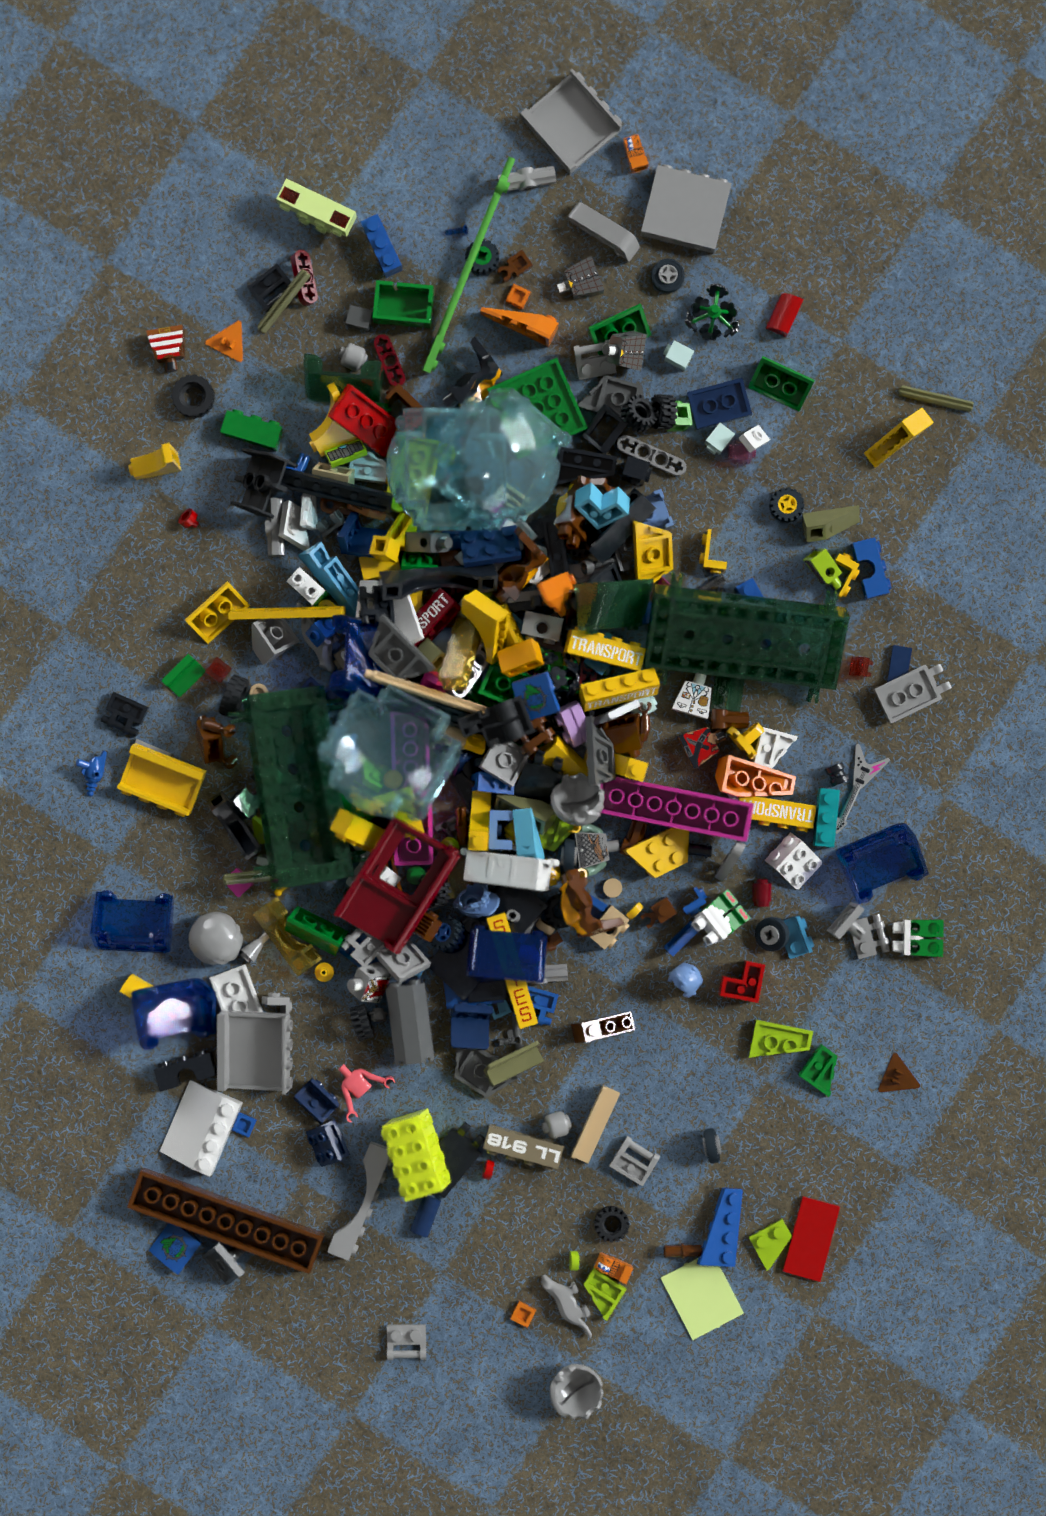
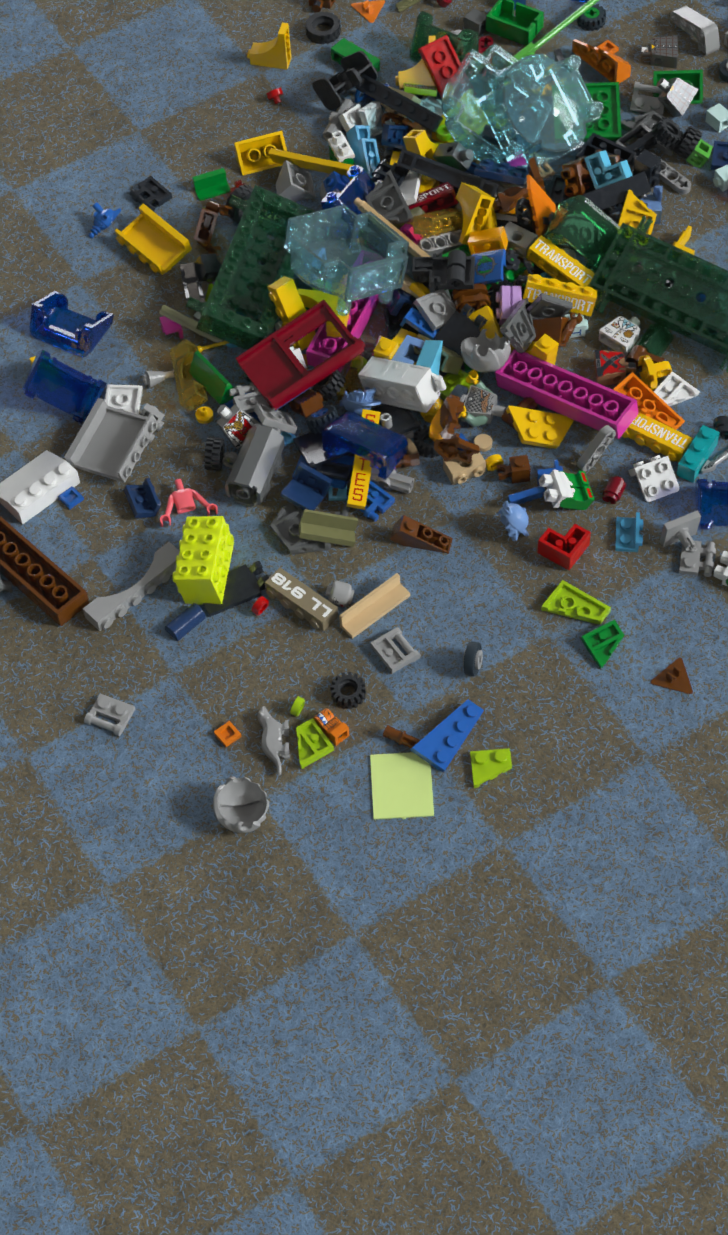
camera: 25 degrees right, 30 degrees down
(168, 1074) = (33, 435): black arch -> none
(215, 938) = (129, 355): light grey piece -> none
(327, 1143) = (133, 533): dark blue bracket -> none
(517, 265) = (616, 29): reddish brown plate -> none
(700, 850) = (576, 442): black pin -> none
(778, 931) = (608, 520): black wheel -> none
(811, 1238) = (529, 777): red tile -> none

